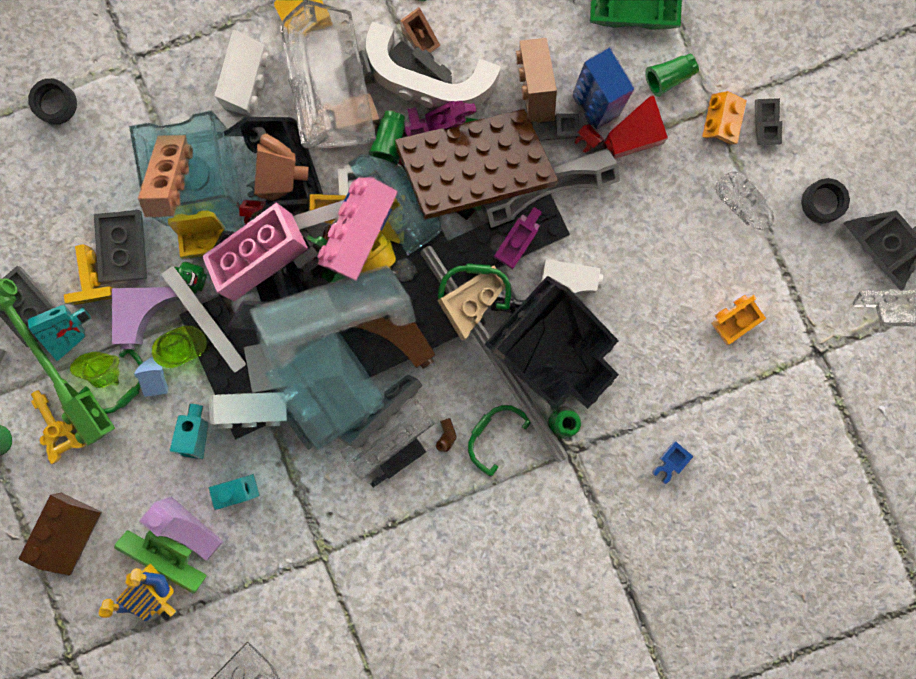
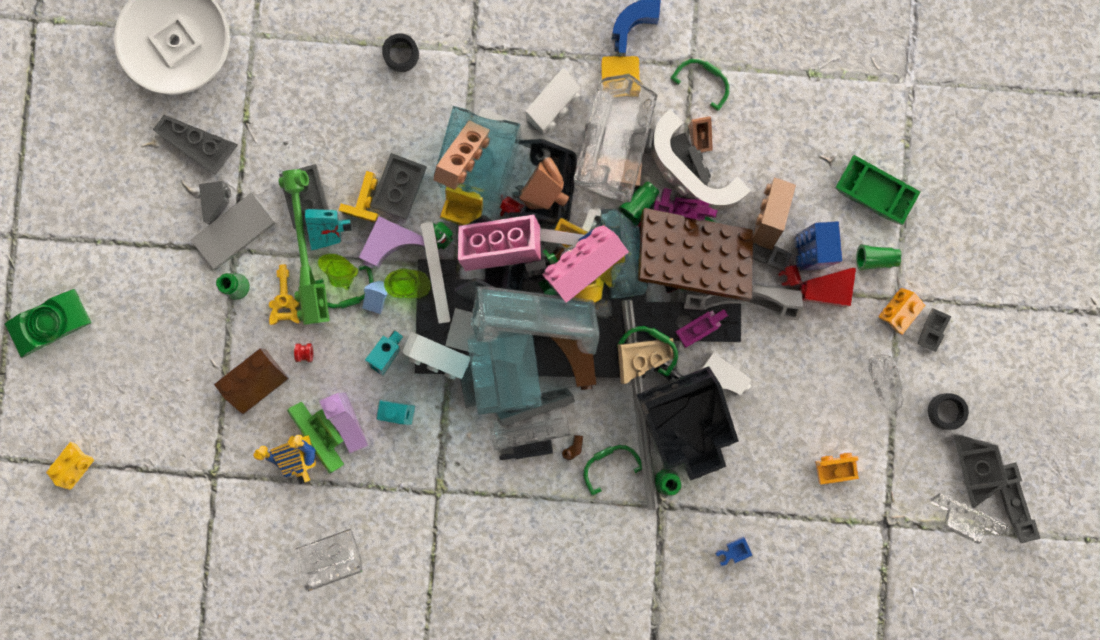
camera: 25 degrees right, 0 degrees up
(102, 476) = (303, 352): none -> red wheel

